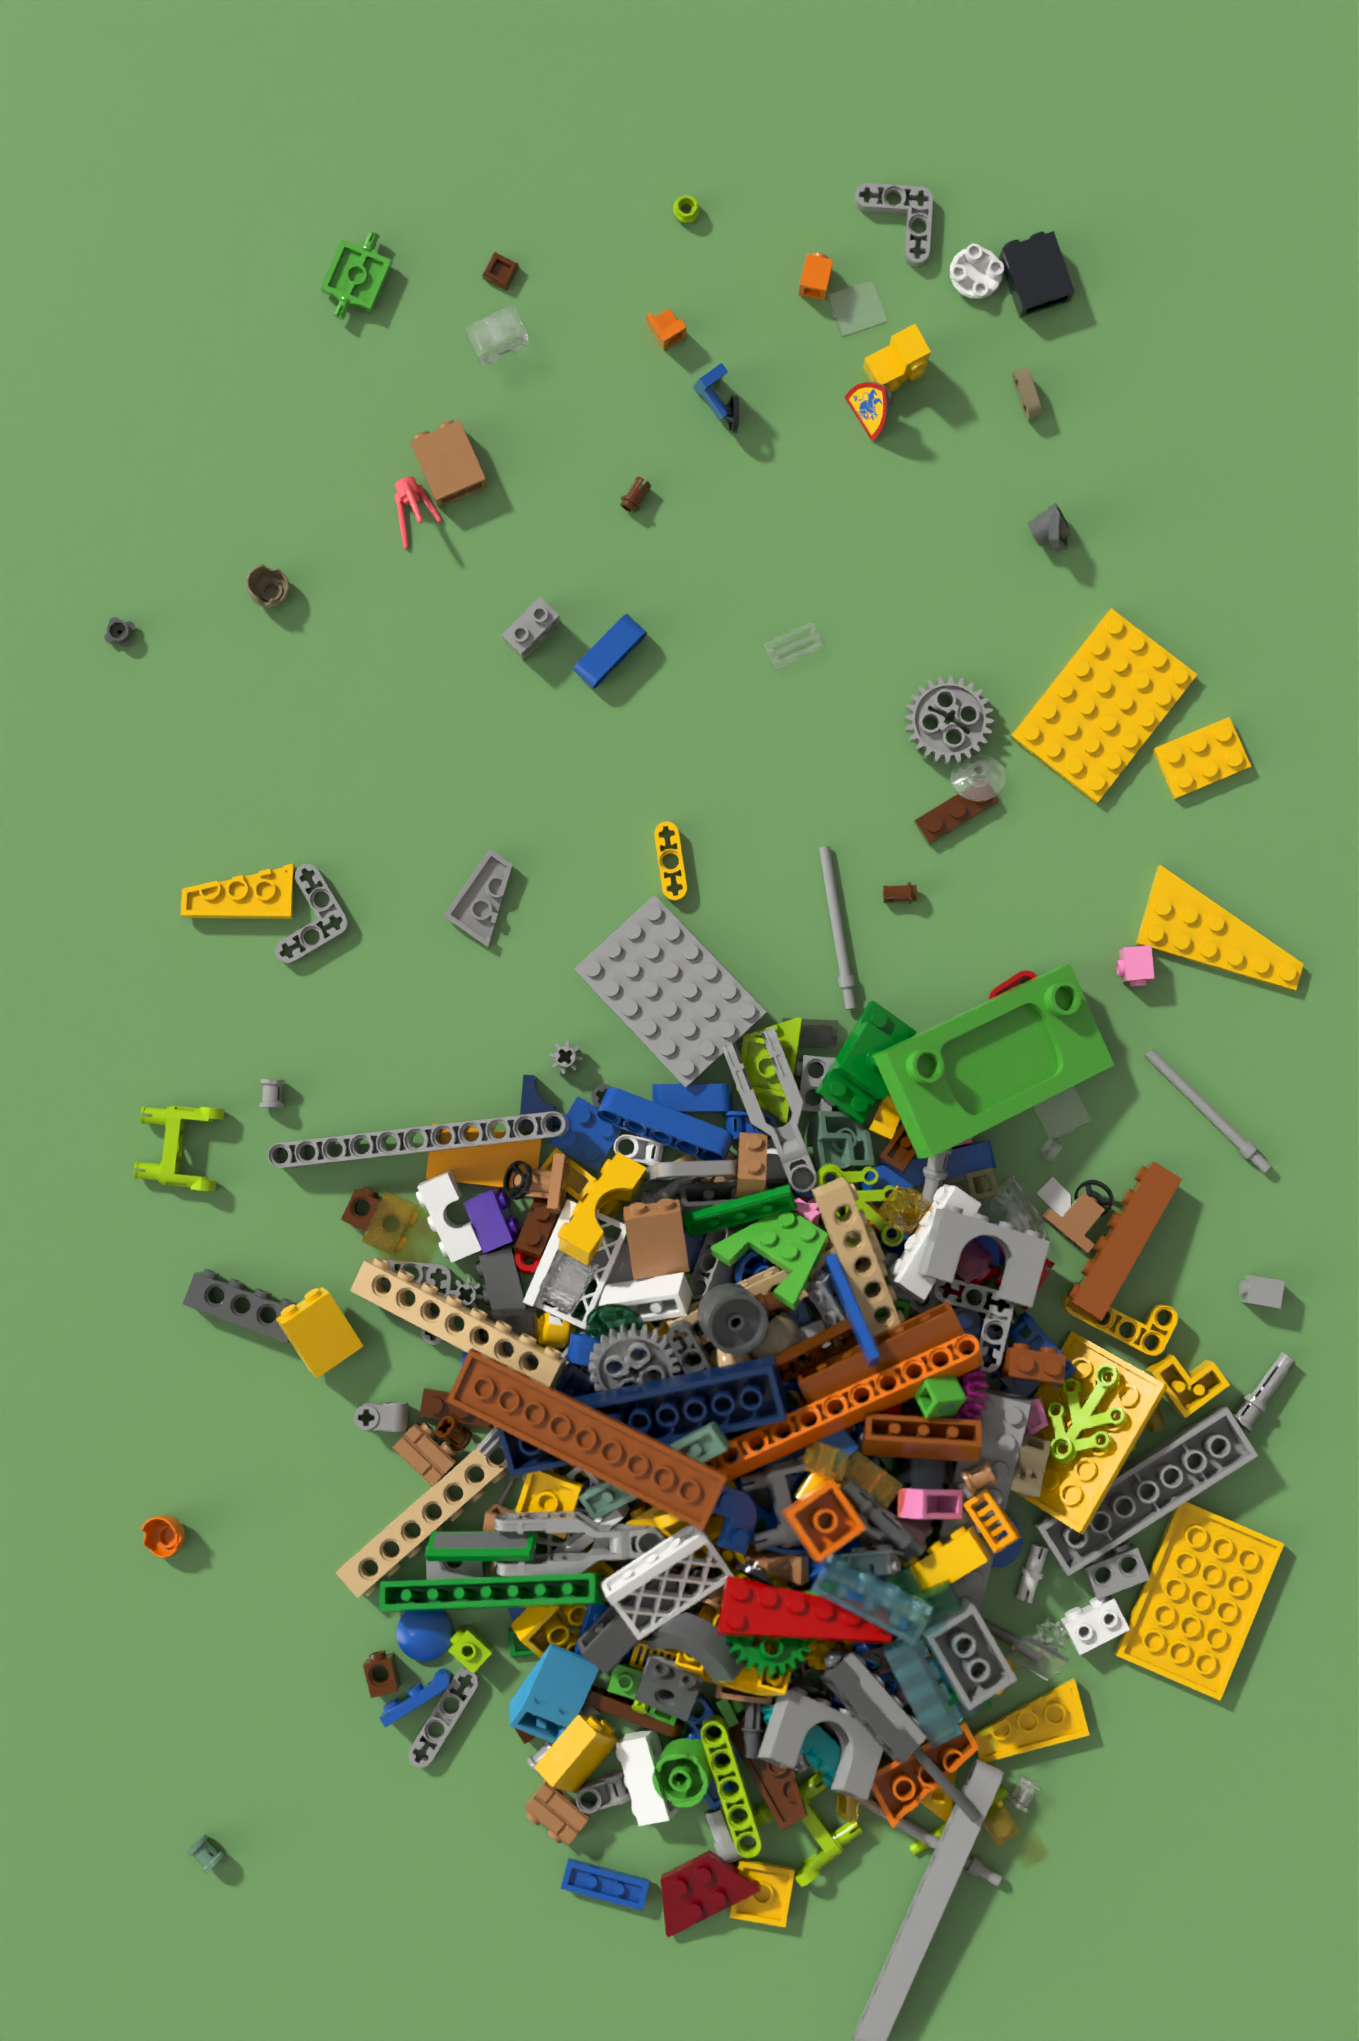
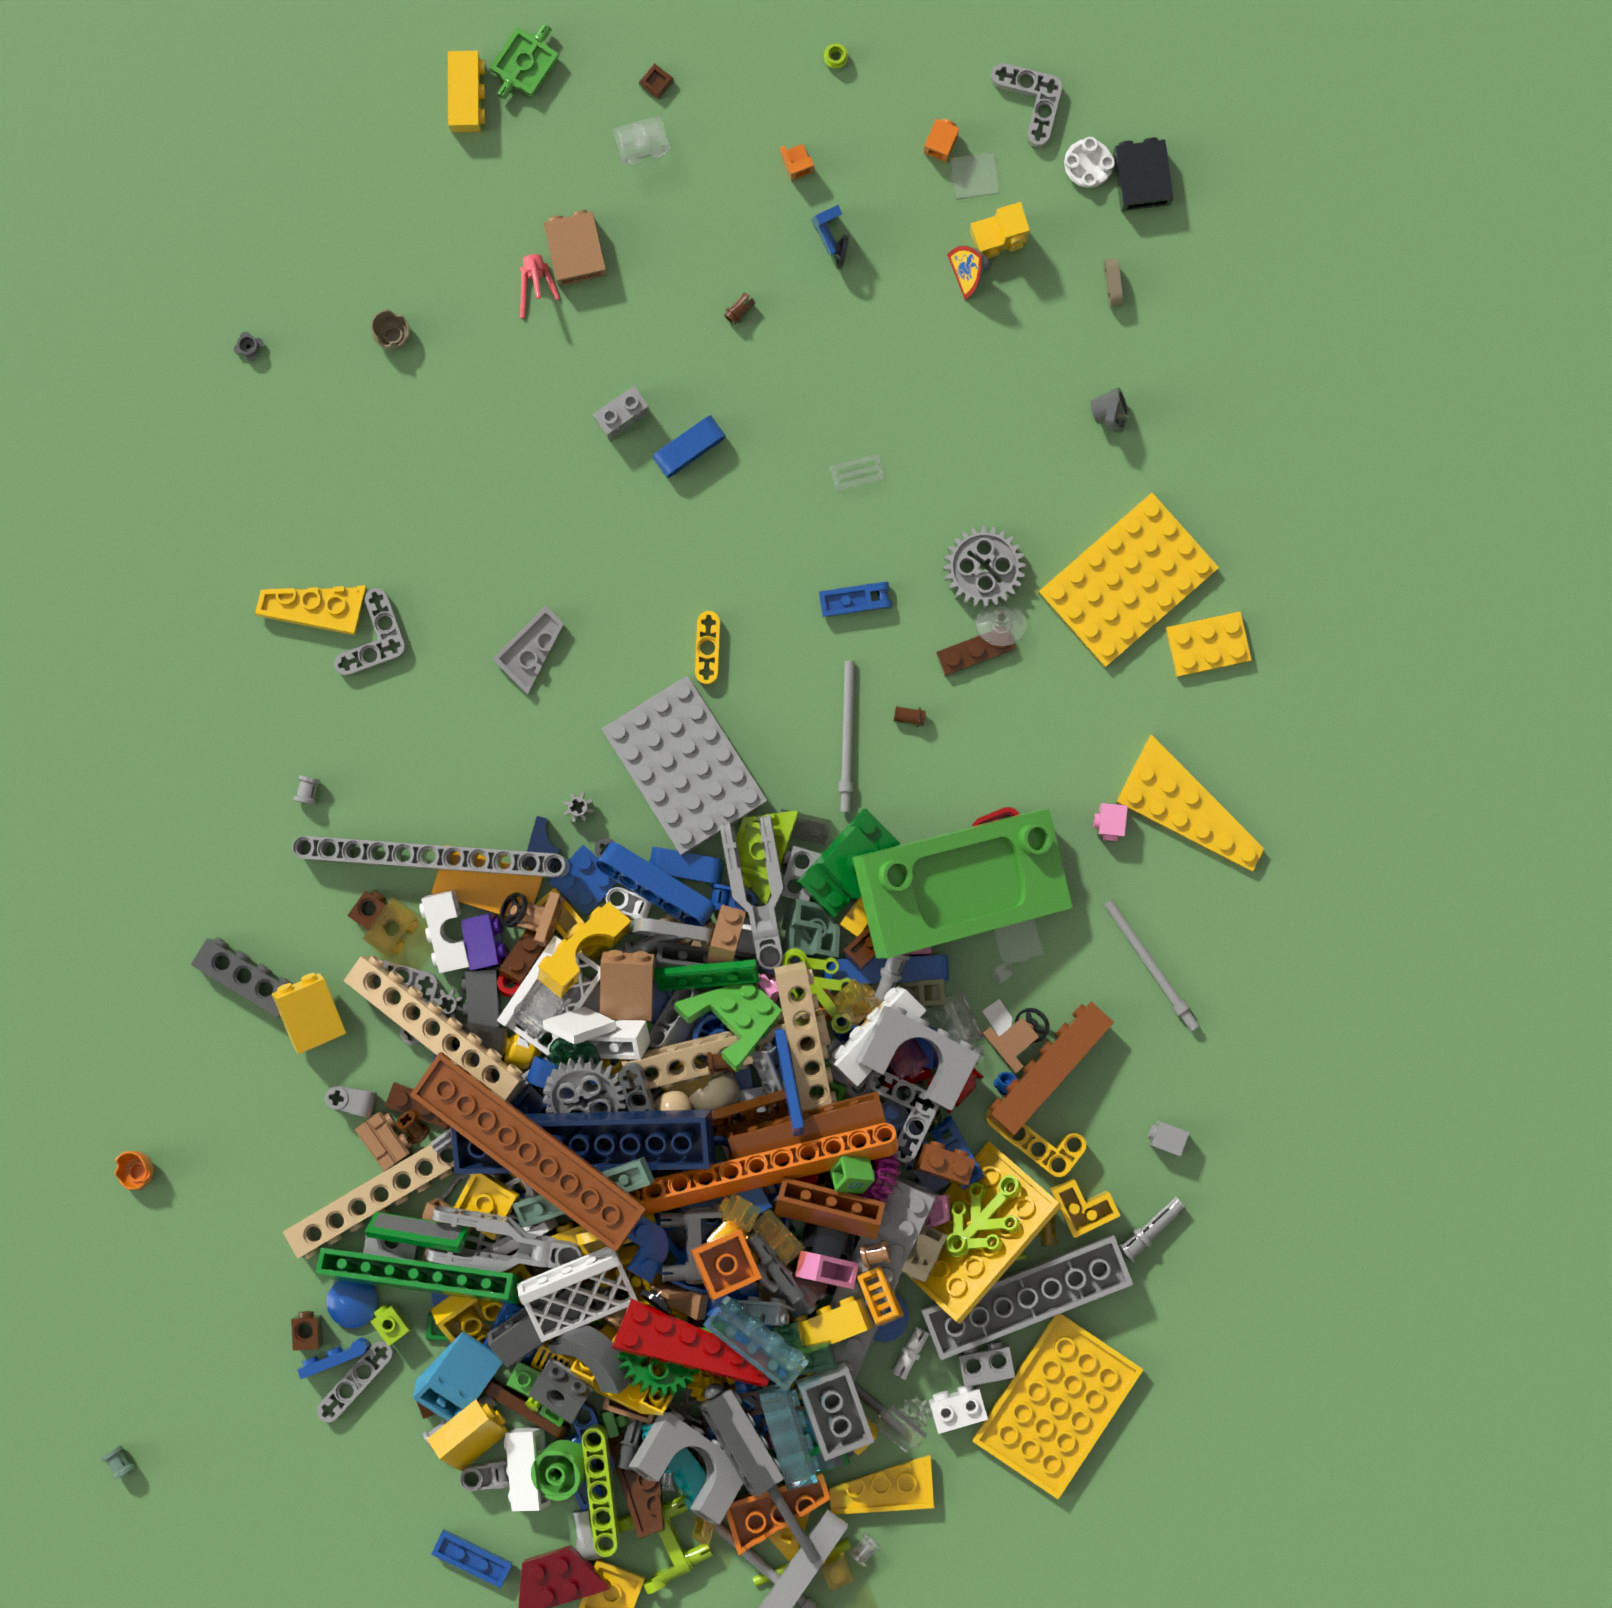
camera: 10 degrees right, 0 degrees up
(169, 1169) = (214, 798): lime connector -> none
(300, 318) = (465, 91): none -> yellow brick
(556, 1812) = (440, 1485): medium nougat brick -> none
(614, 1291) = (579, 1025): none -> white tile
(732, 1318) = (693, 1068): dark grey wheel -> none
(817, 780) = (854, 599): none -> blue plate
(1075, 1264) = (1003, 1081): none -> blue plate

